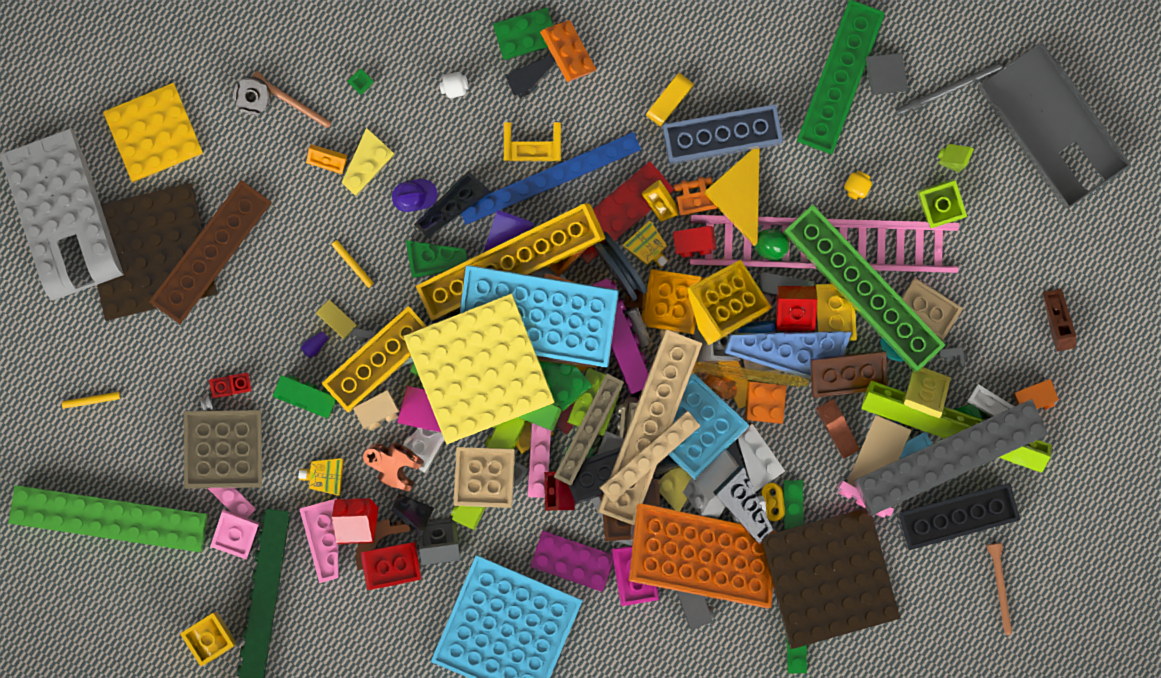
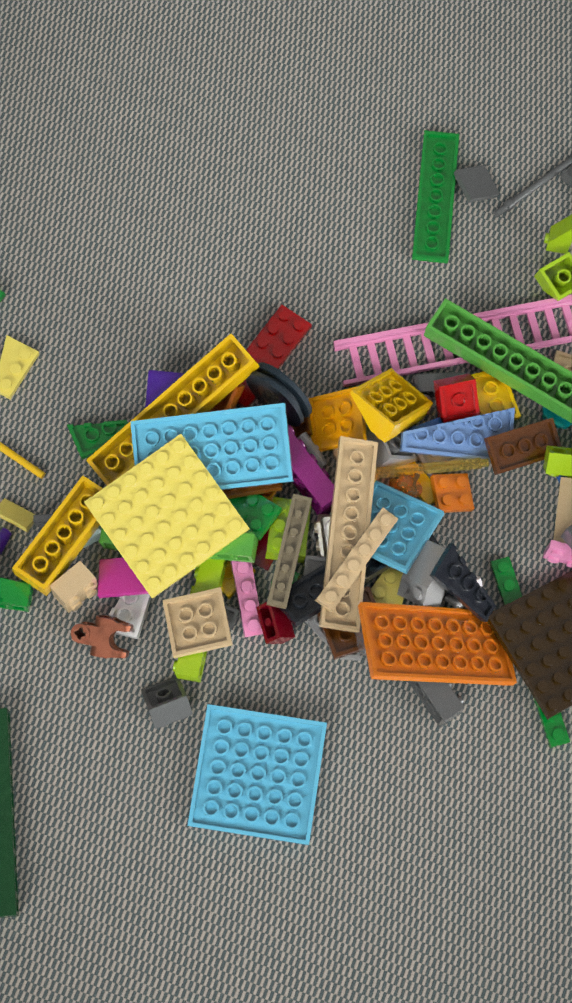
camera: 15 degrees left, 15 degrees down
(322, 539) = (46, 724): bright pink wing -> none
(324, 476) = (36, 665): yellow torso -> none
(354, 520) = (76, 699): slope -> none
(383, 529) = (98, 714): reddish brown arch -> none
(390, 565) = (123, 736): red plate -> none
(412, 512) = (133, 678): black wing -> none
(414, 195) = (66, 385): dark purple piece -> none
(452, 203) = (109, 375): black wing -> none
(454, 85) = (81, 278): white head -> none
(522, 33) = (137, 224): green plate -> none
(527, 78) = (149, 257): black slope -> none
(532, 150) = (169, 319): yellow plate -> none
(552, 177) = (192, 341): blue plate -> none
(568, 50) = (181, 225): orange plate -> none
(572, 561) = (306, 689): magenta plate -> none
(630, 592) = (373, 695): dark pink tile -> none
(647, 245) = (303, 374): yellow torso -> none
(660, 201) = (301, 335): yellow slope -> none
(669, 99) = (285, 248): yellow beam -> none
(694, 202) = (334, 330): orange plate -> none
(694, 241) = (343, 362): red brick -> none
(722, 134) = (342, 264): sand blue brick -> none
(738, 195) = (373, 314): yellow tile -> none
(758, 458) = (470, 549): white wing -> none
(772, 244) = (416, 349): green hat -> none
(773, 501) = (489, 582): yellow plate -> none
(837, 428) = (527, 499): copper slope -> none
(858, 185) = (480, 281): yellow head -> none

